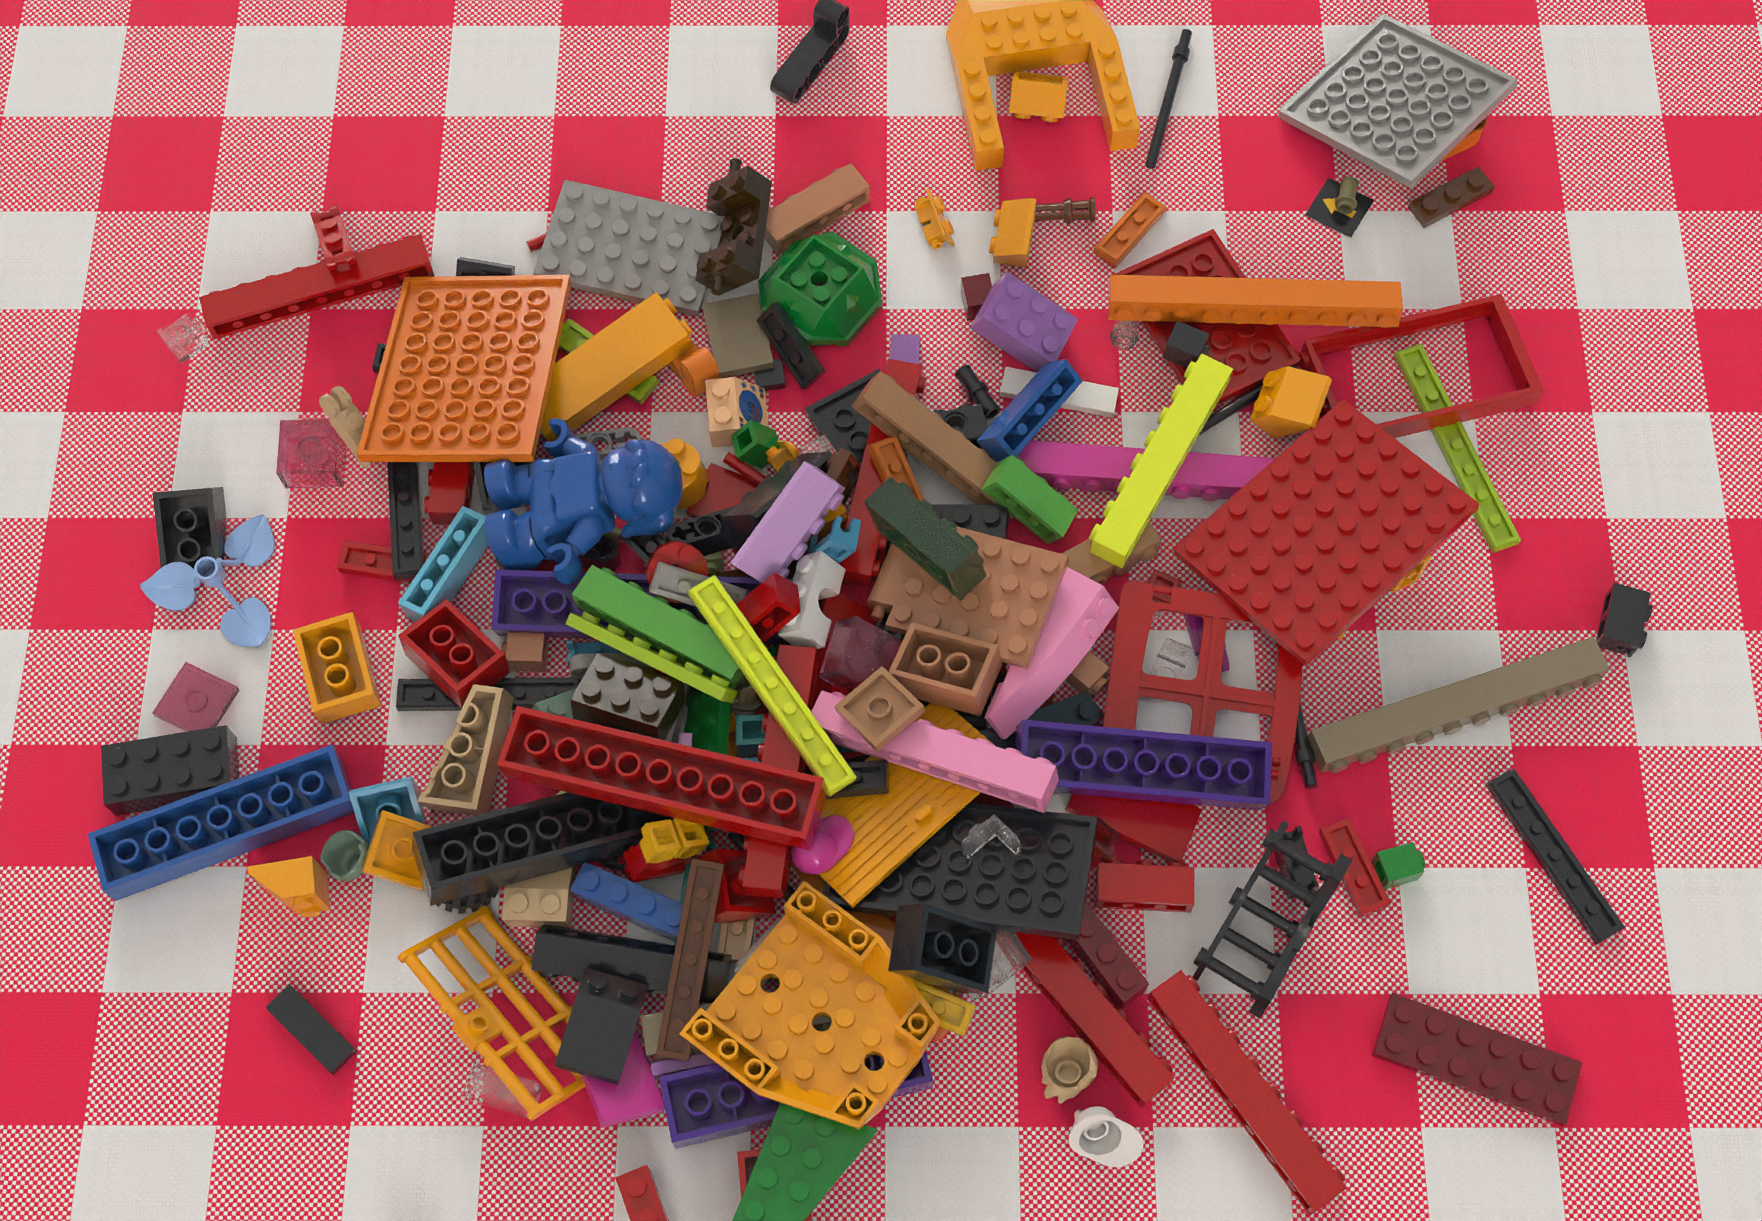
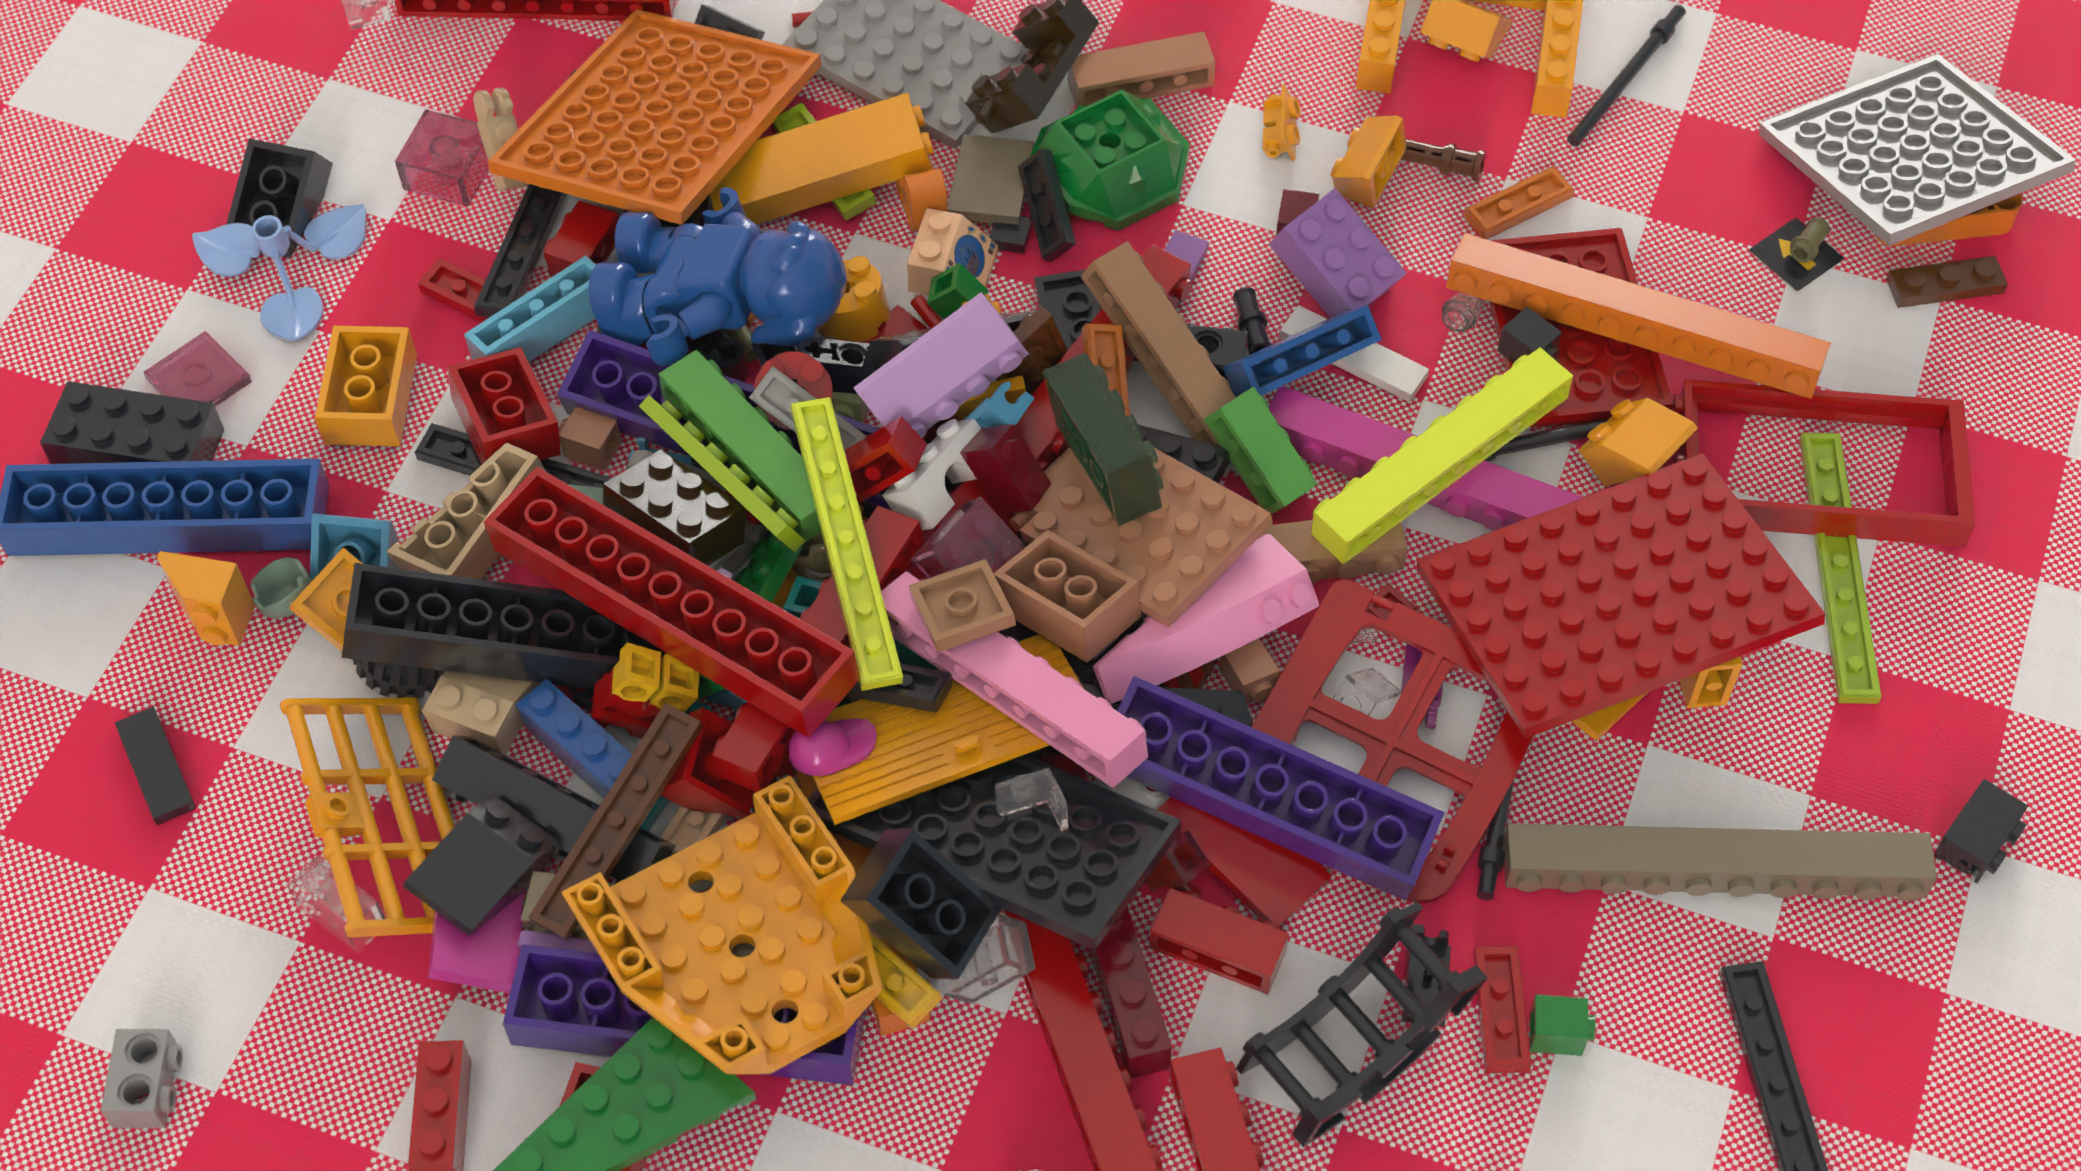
camera: 20 degrees right, 10 degrees down
(858, 580) = (1006, 469): none -> dark red brick
(1068, 1068) = (1029, 1114): tan hair -> none

